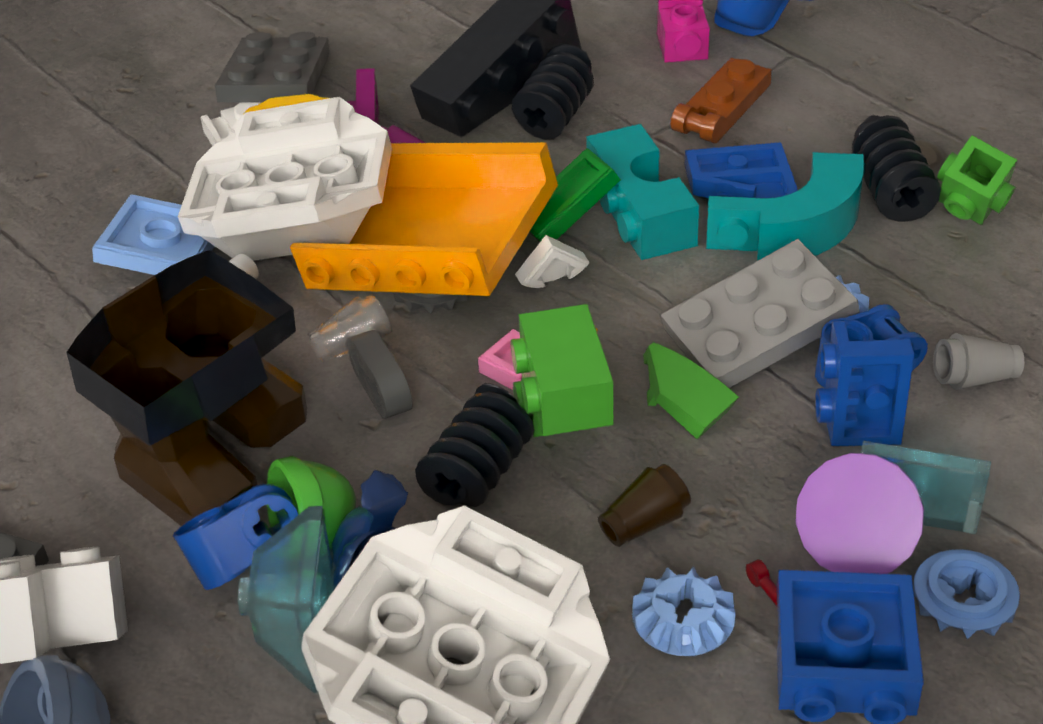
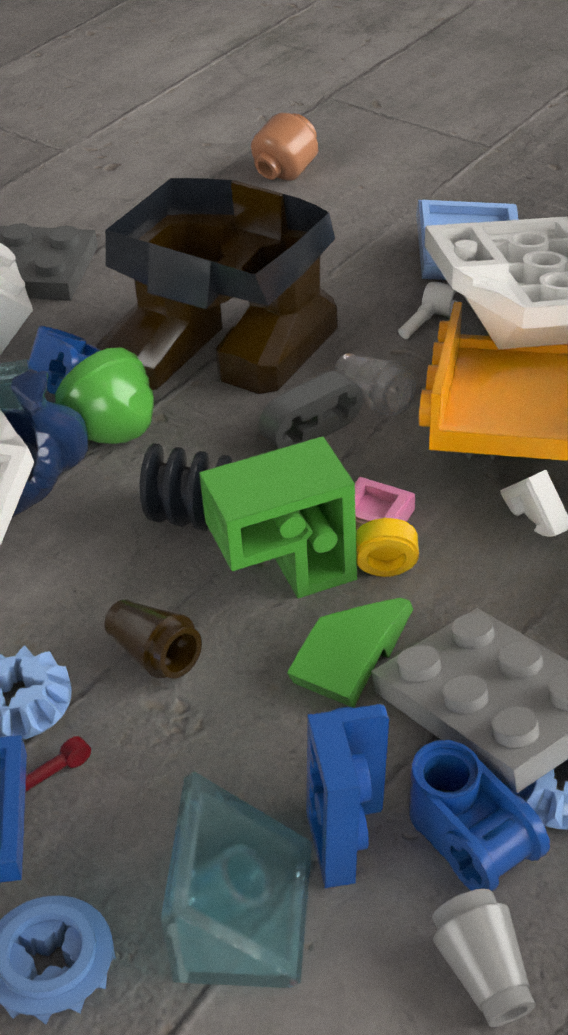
camera: 80 degrees right, 0 degrees up
(860, 514) = (127, 815): medium lavender tile -> none

